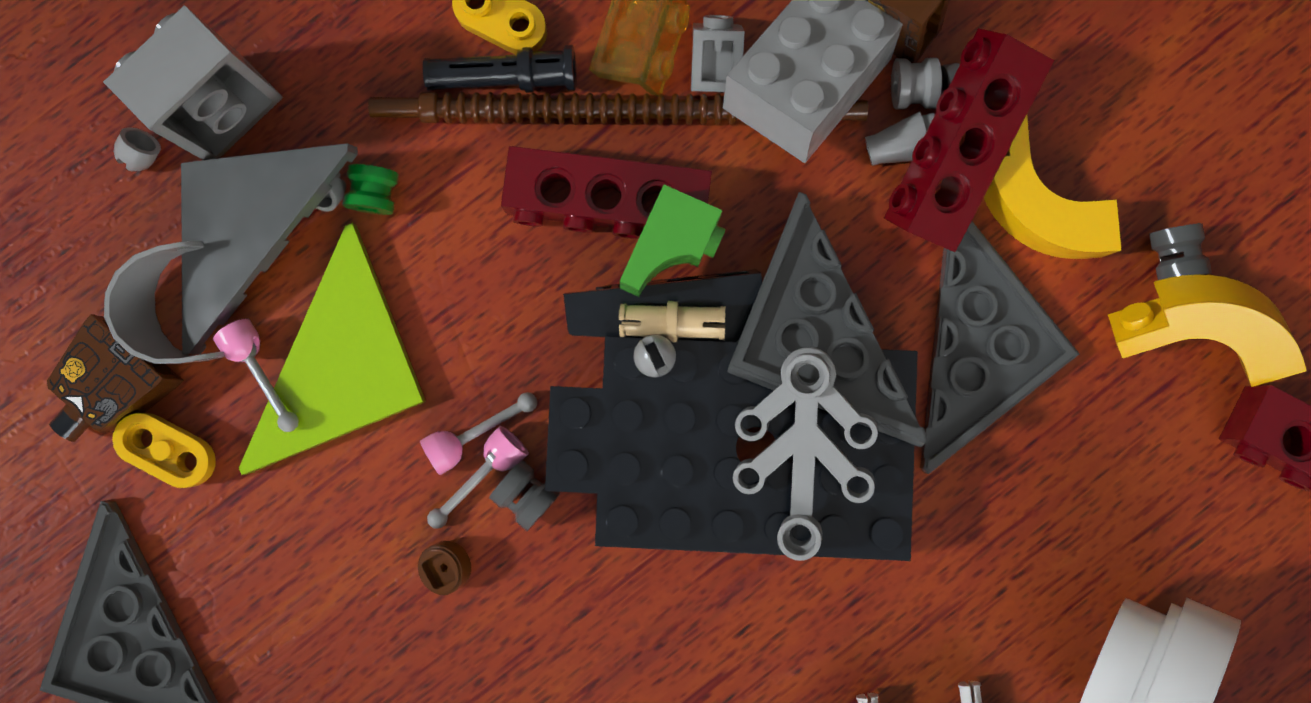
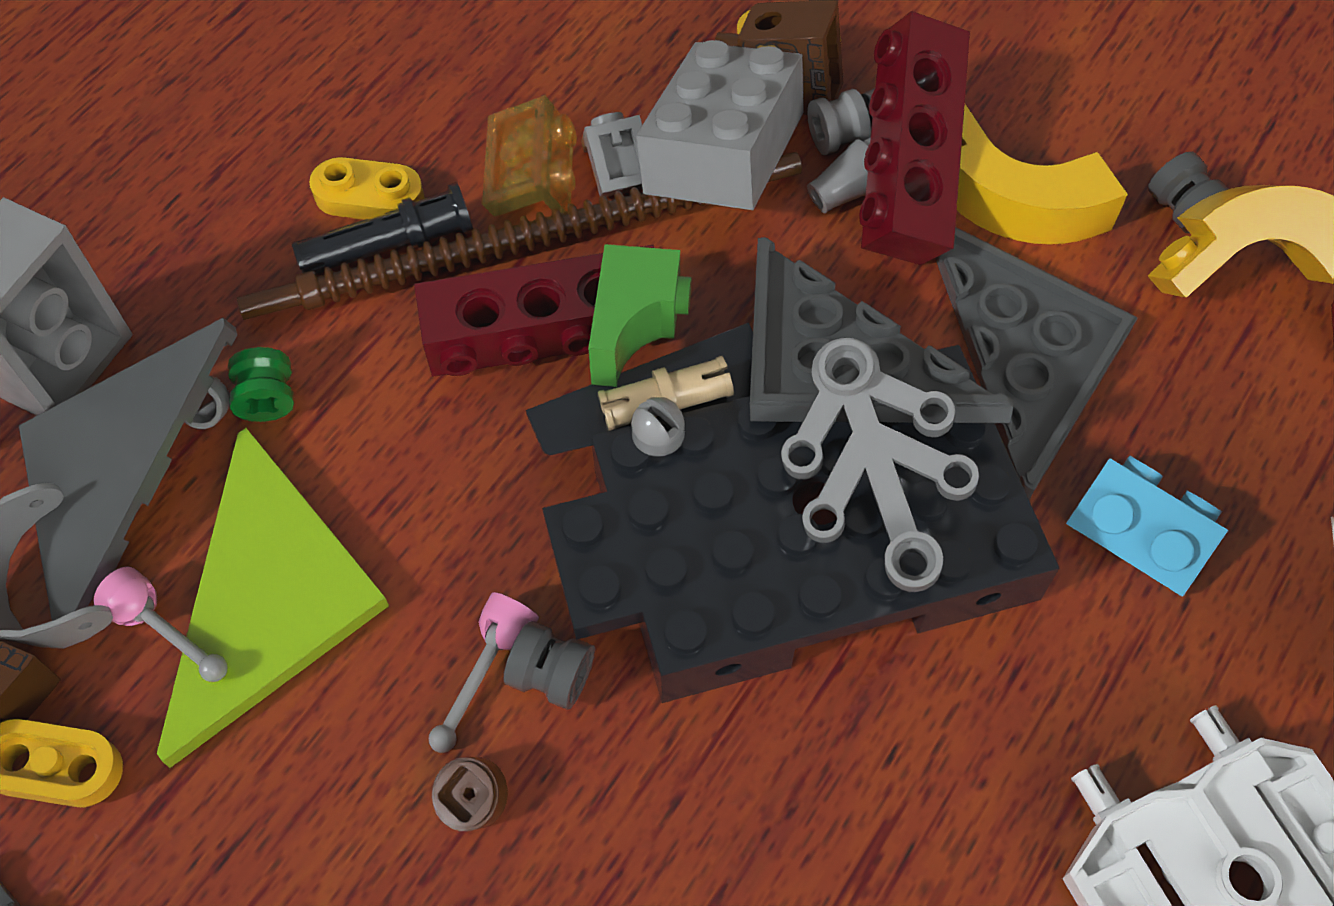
camera: 20 degrees left, 25 degrees down
(446, 449) = (429, 644): hinge -> none
(1002, 530) = (1147, 525): none -> medium azure bracket

